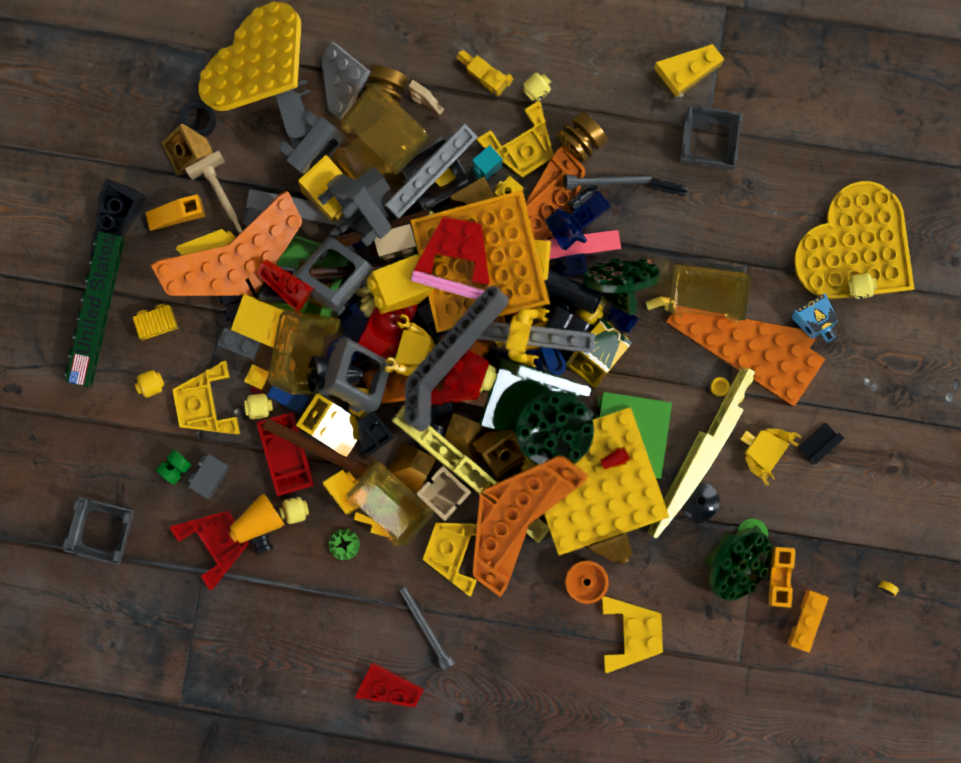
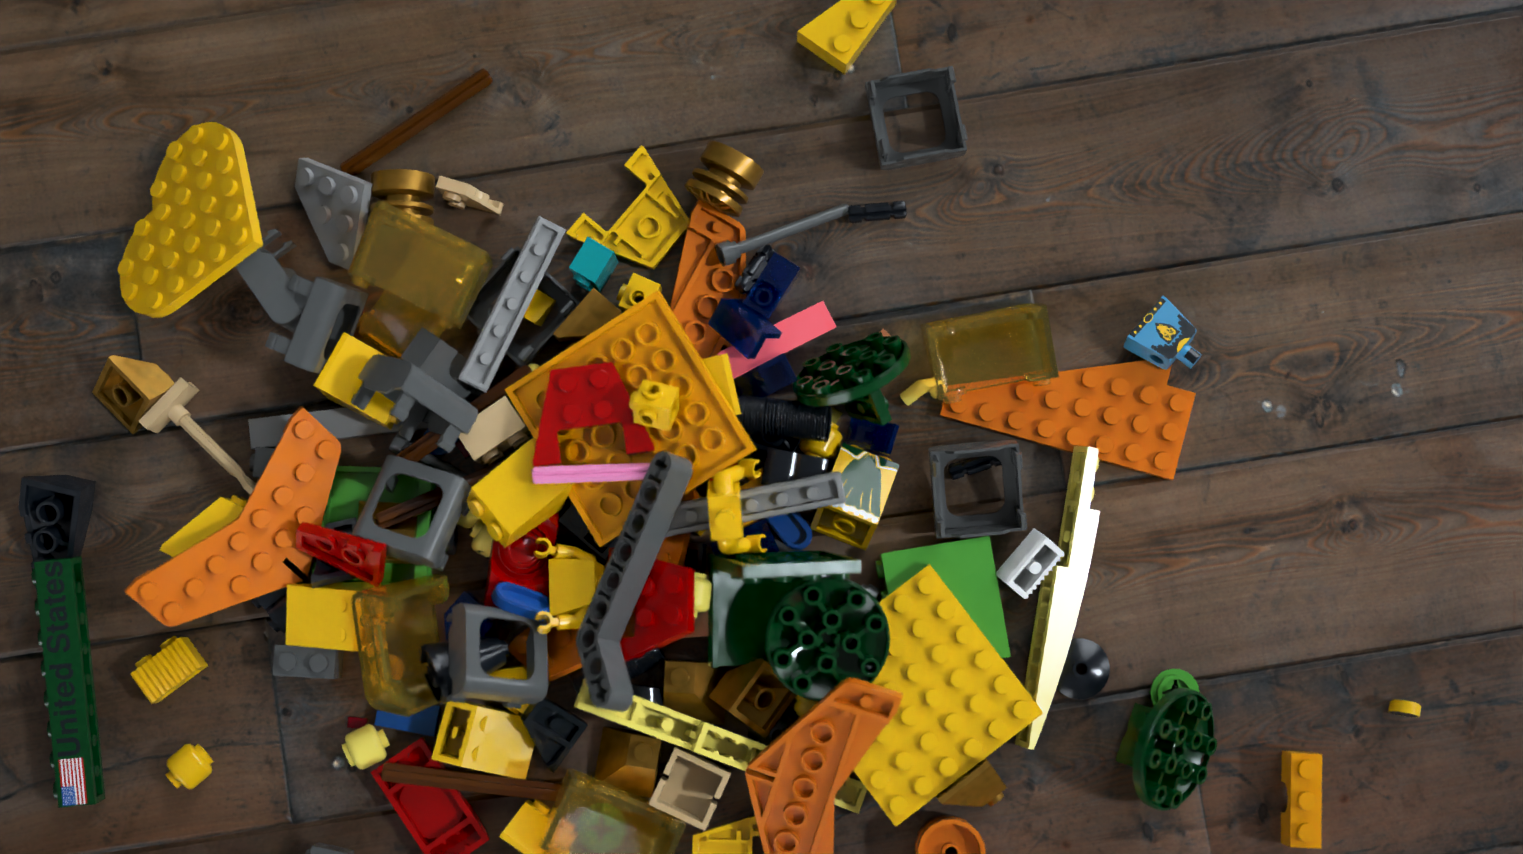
camera: 15 degrees left, 0 degrees up
(175, 212) = (147, 491): light orange slope -> none
(196, 403) = (271, 772): yellow wing -> none
(197, 104) = (120, 321): black tyre -> none
(257, 377) = (350, 701): yellow plate -> none
(353, 322) = (469, 569): panel -> none
(379, 347) = (519, 600): none -> blue tile
(408, 43) = (417, 123): none -> reddish brown axle
(485, 73) = (547, 130): yellow piece -> none
(498, 257) = (655, 405): none -> yellow brick
(537, 86) = (631, 125): light yellow head -> none
(616, 458) = (933, 651): red cone -> none
(679, 358) = (971, 466): none -> black axle
(687, 396) = (1007, 519): none -> dark grey piece
(690, 427) = (1029, 563): none -> white brick
(719, 386) = (1051, 486): yellow tile -> none
(766, 450) = (1153, 560): yellow torso -> none
(780, 577) = (1234, 727): light orange arch -> none
(820, 443) = (1230, 523): black panel -> none
(861, 236) = (1189, 209): yellow plate -> none
(862, 286) = (1215, 266): light yellow head -> none

